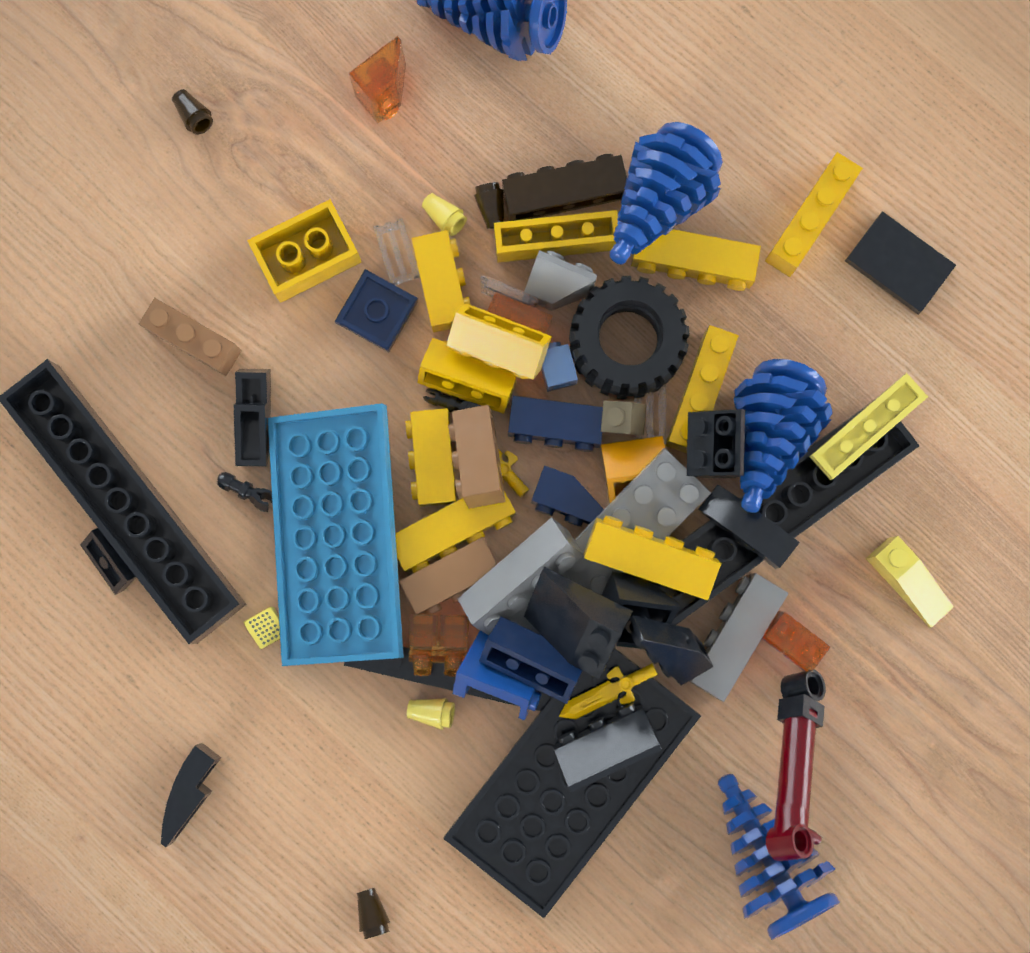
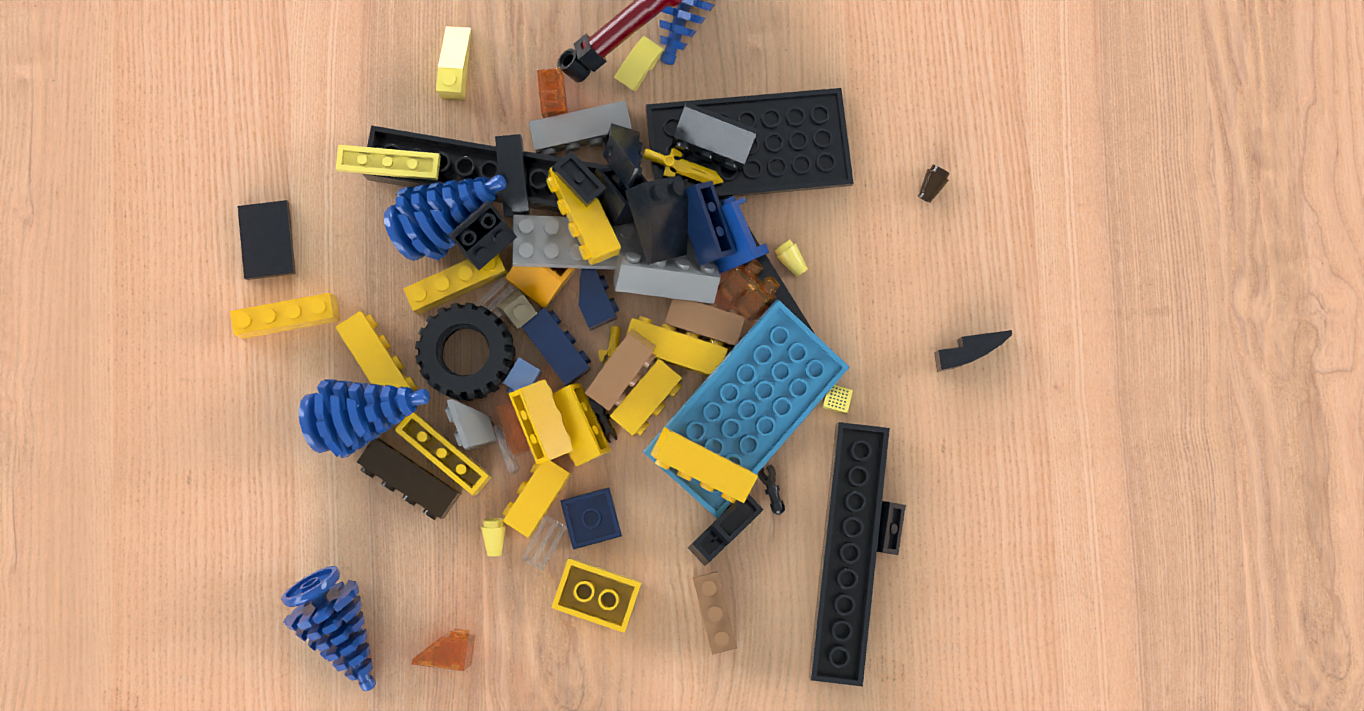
camera: 130 degrees left, 0 degrees up
(320, 445) = (703, 465): none -> yellow brick
(490, 203) = (460, 513): dark brown cone -> none
(684, 579) = (578, 178): none -> black plate
(749, 751) = (638, 63): none -> light yellow slope

